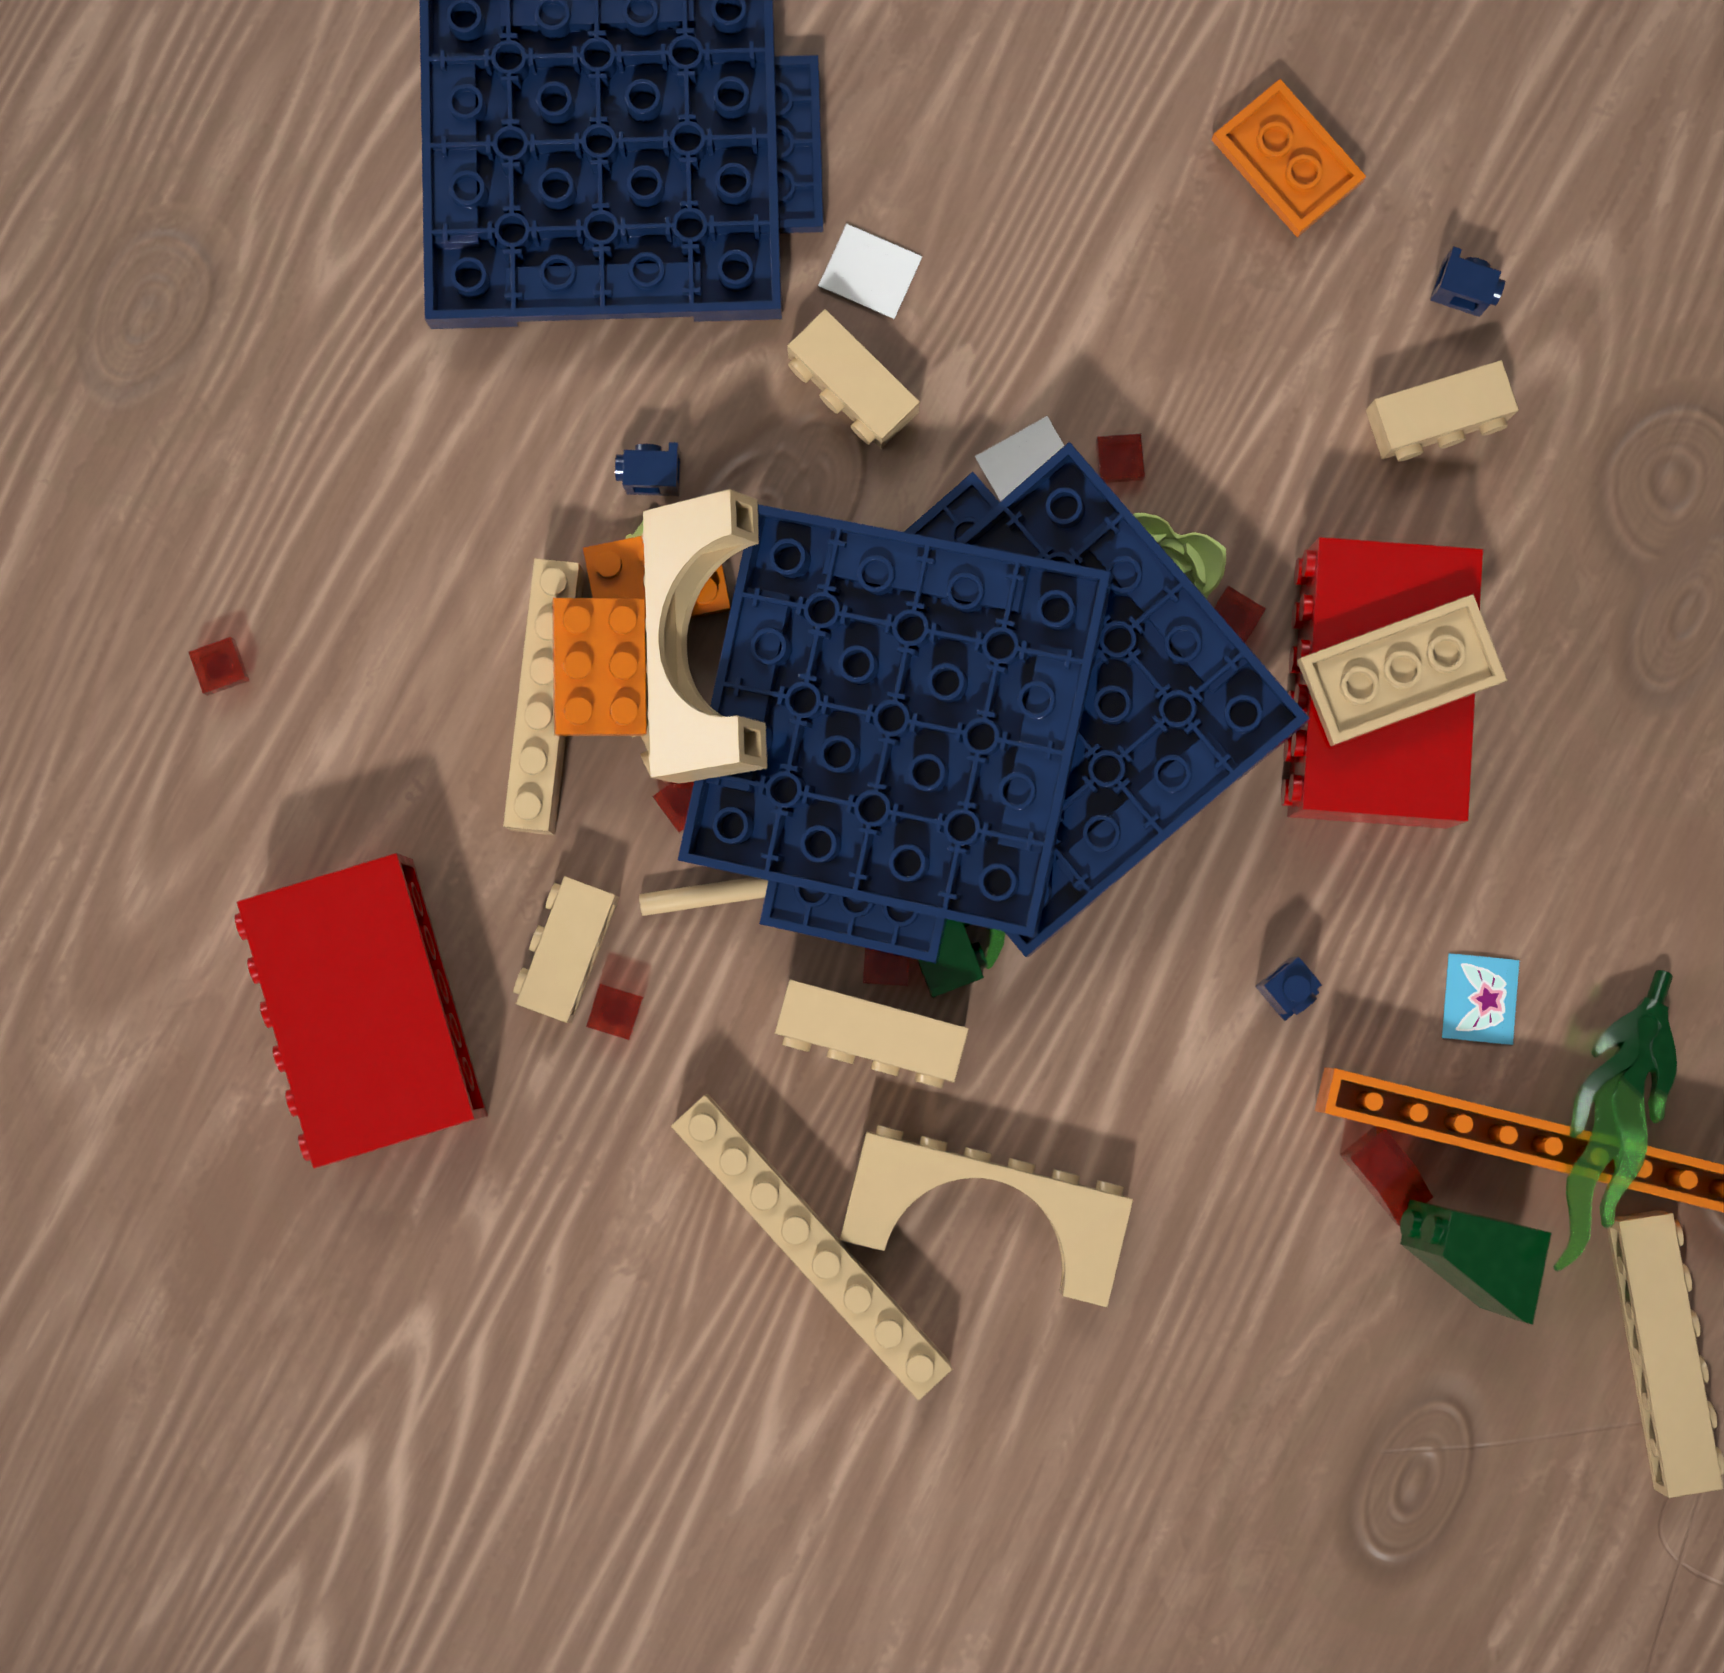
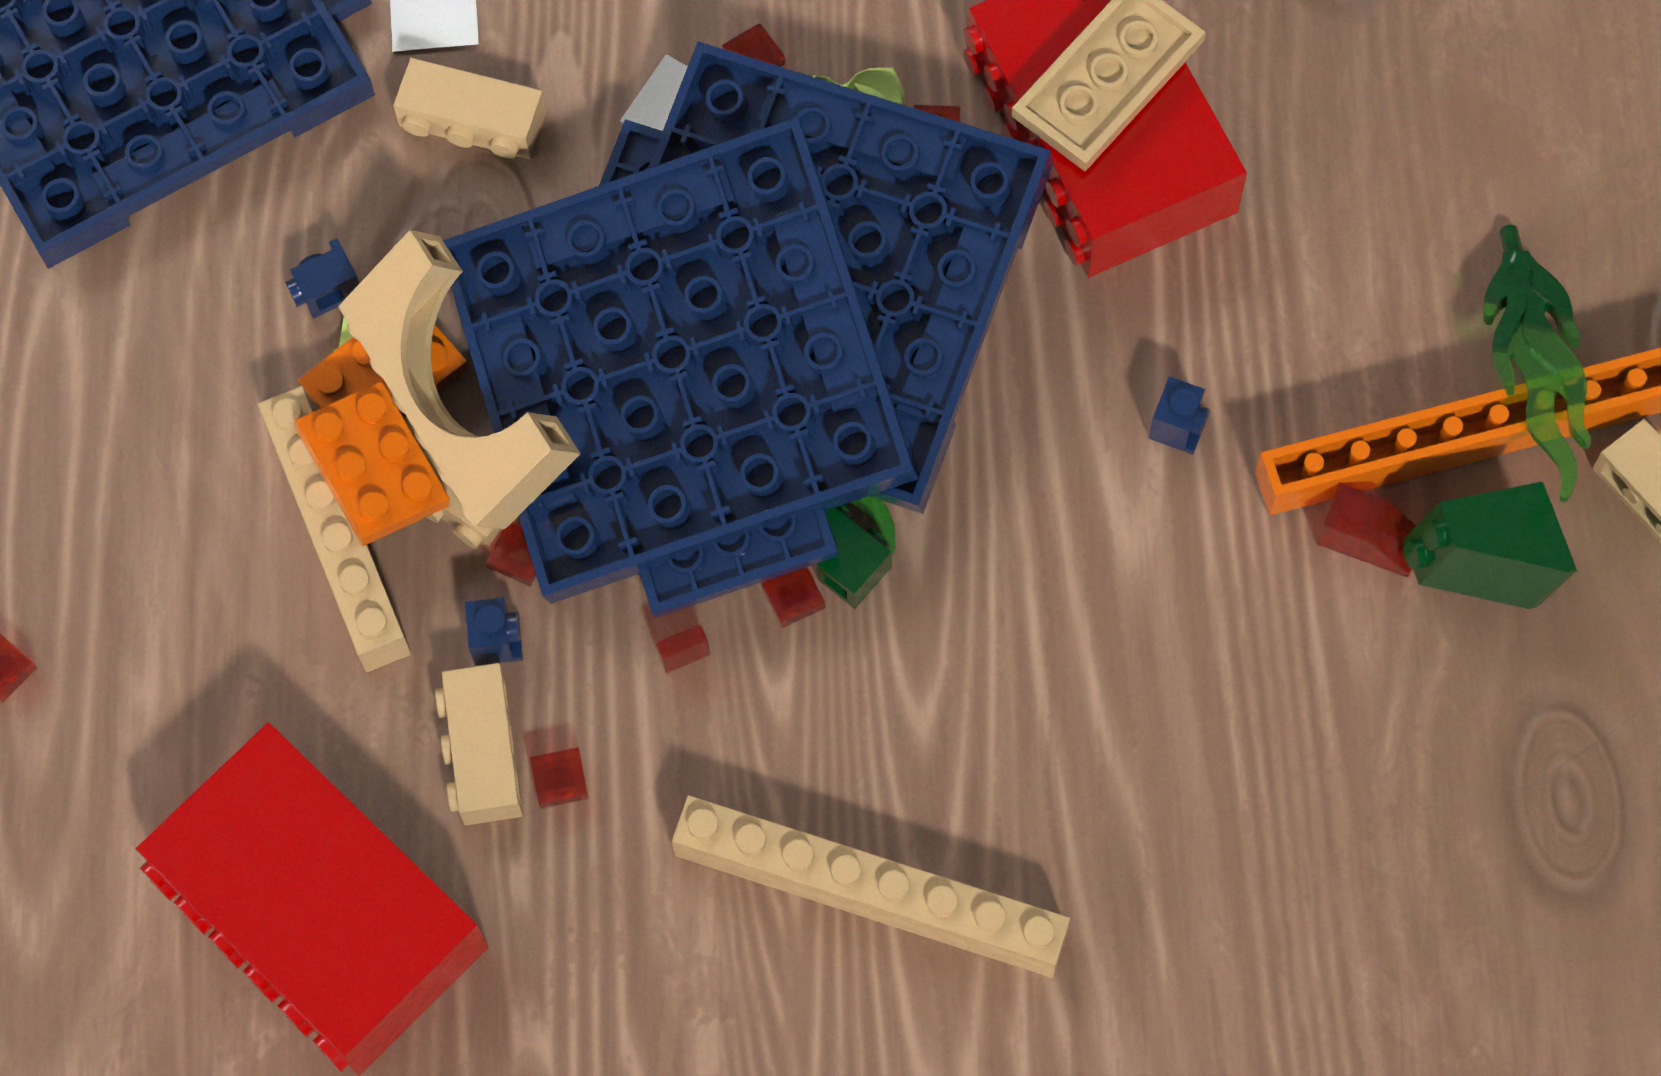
camera: 25 degrees left, 15 degrees down
(627, 859) = (493, 632): none -> dark blue brick
(702, 895) = (586, 628): tan piece -> none
(771, 959) = (683, 648): none -> clear red tile
(871, 1031) = (814, 655): tan brick -> none
(1085, 1219) = (1111, 722): tan arch -> none
(1480, 999) = (1359, 339): medium azure sticker -> none

